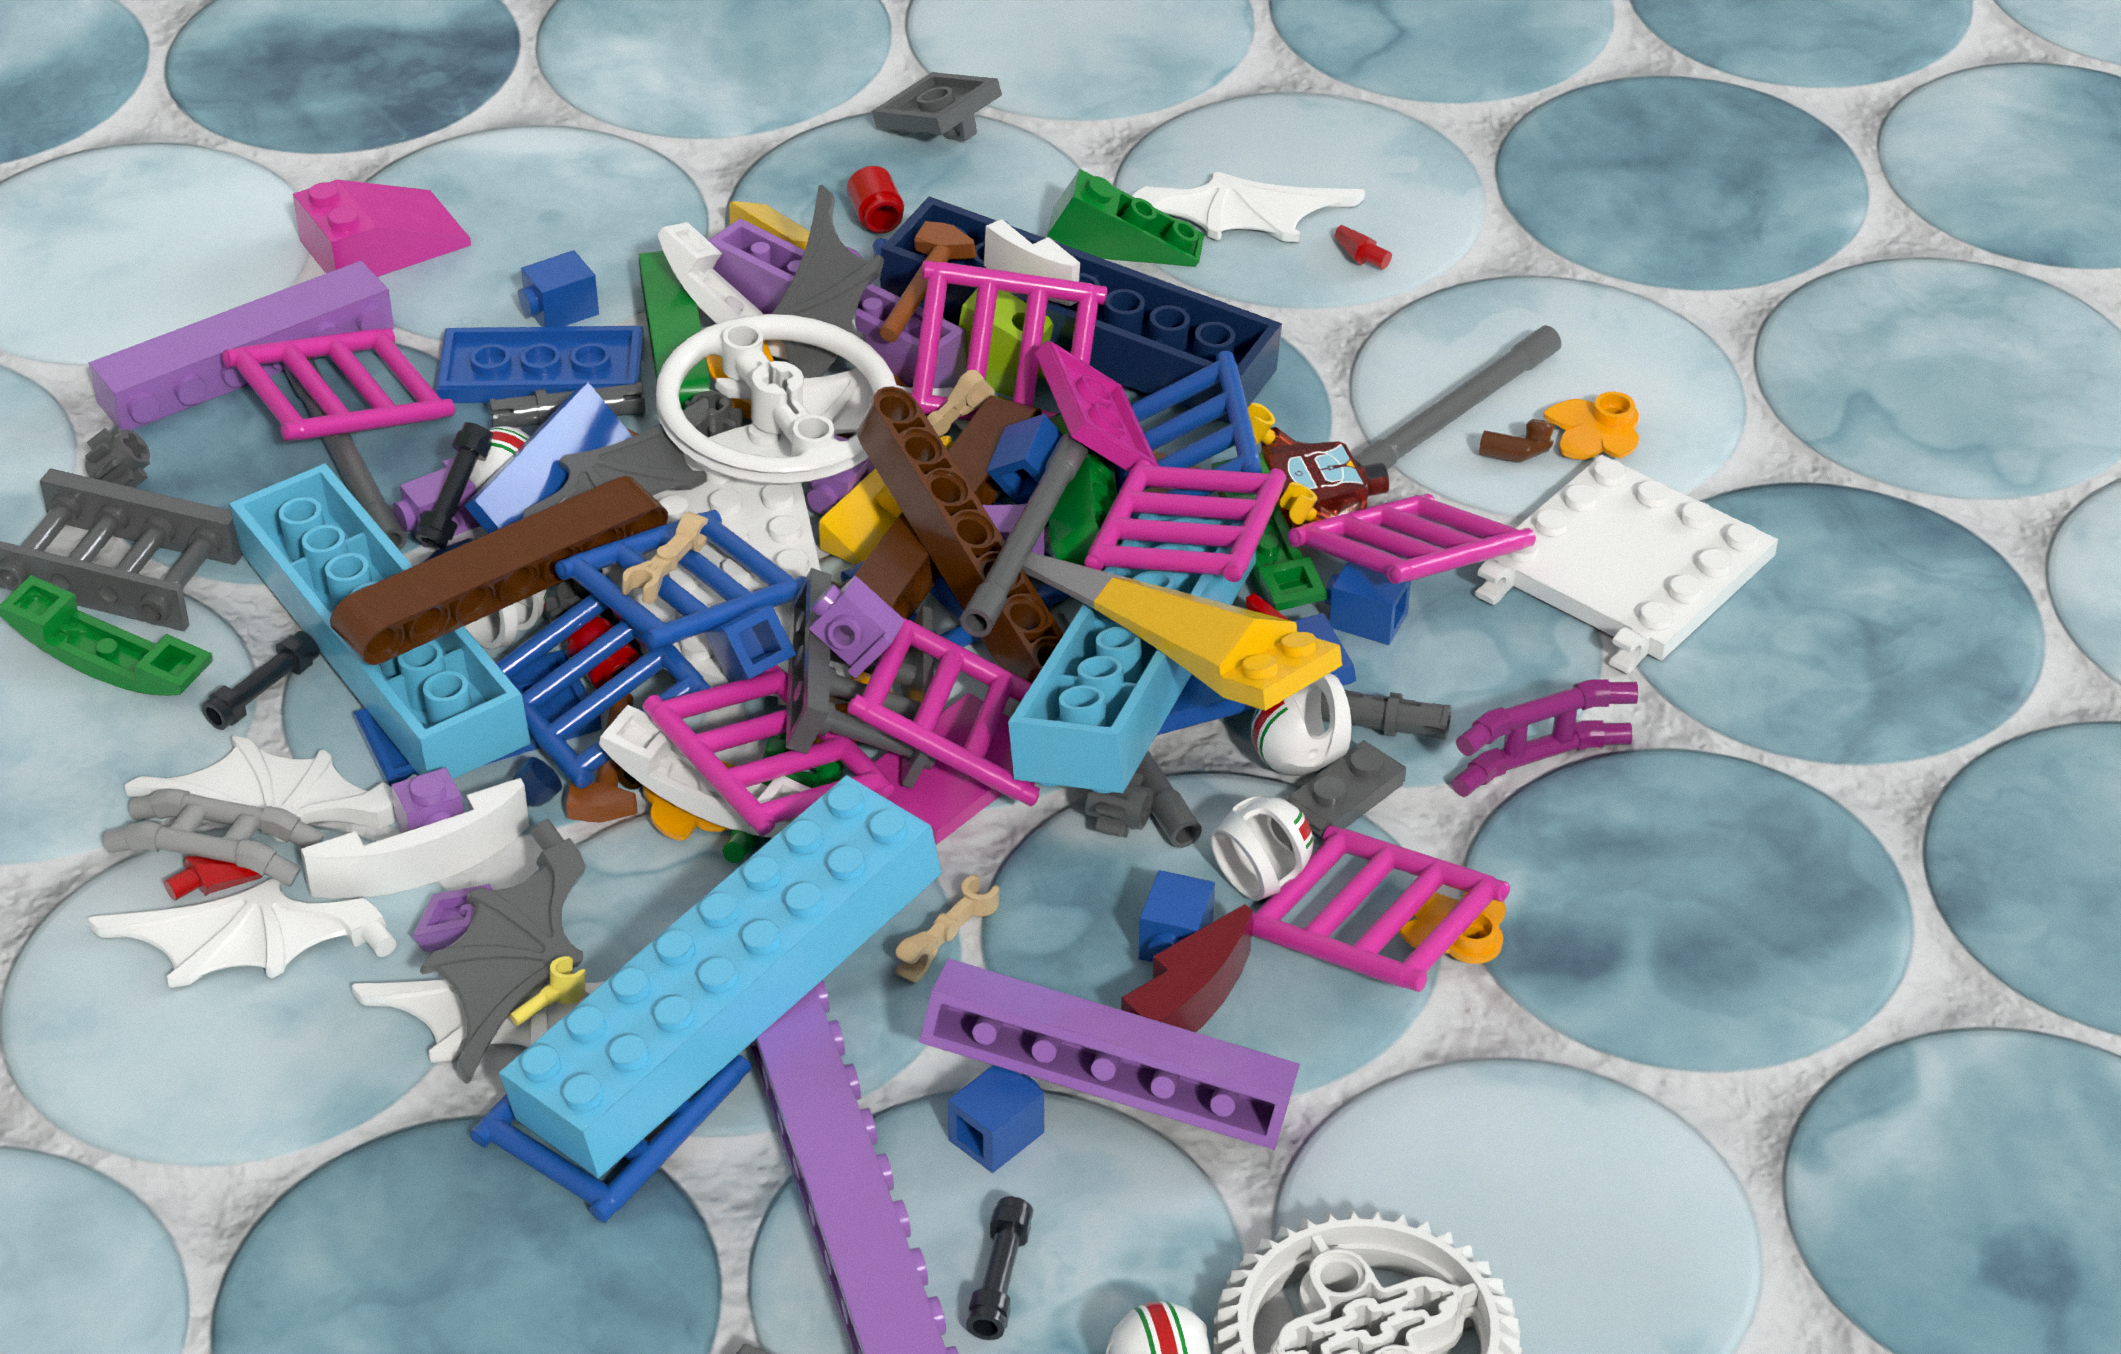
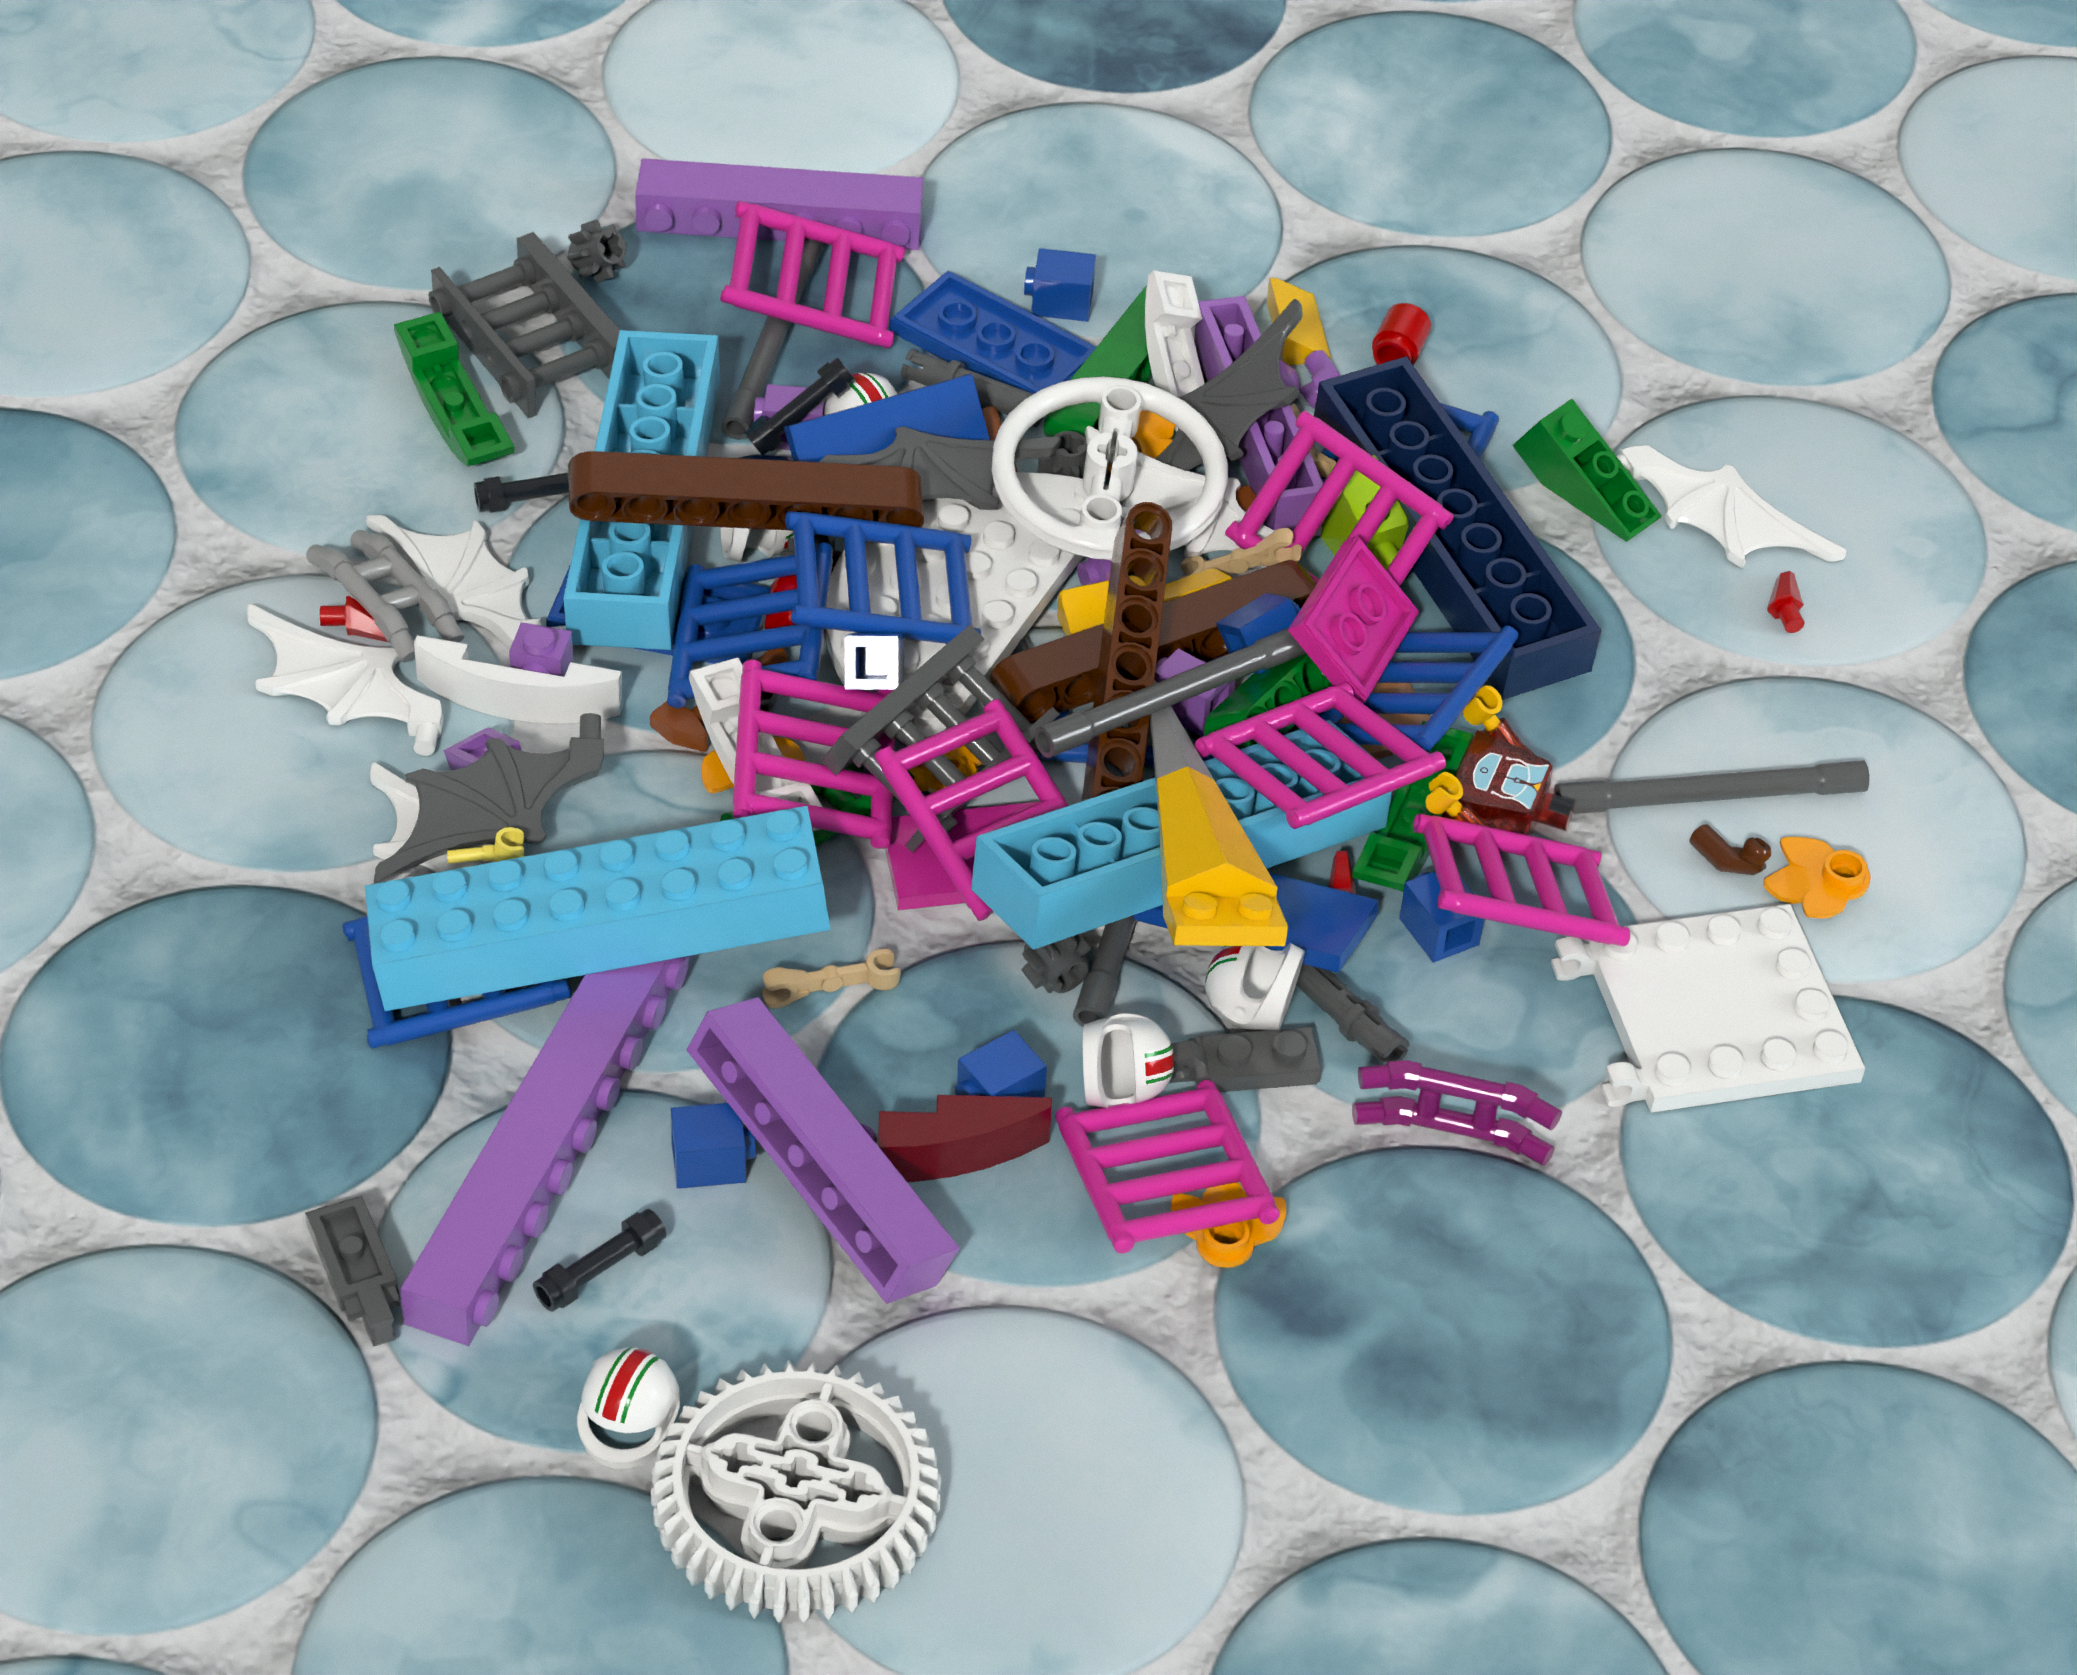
camera: 35 degrees right, 5 degrees up
(374, 224) = (979, 154): dark pink slope -> none
(539, 780) = (647, 683): dark blue hinge -> none
(651, 573) = (841, 560): tan piece -> none
(855, 624) = (947, 688): medium lavender brick -> none
(939, 105) = (1540, 279): dark grey hinge -> none
(940, 243) = (1365, 404): dark orange piece -> none
(1014, 253) = (1415, 461): white slope -> none

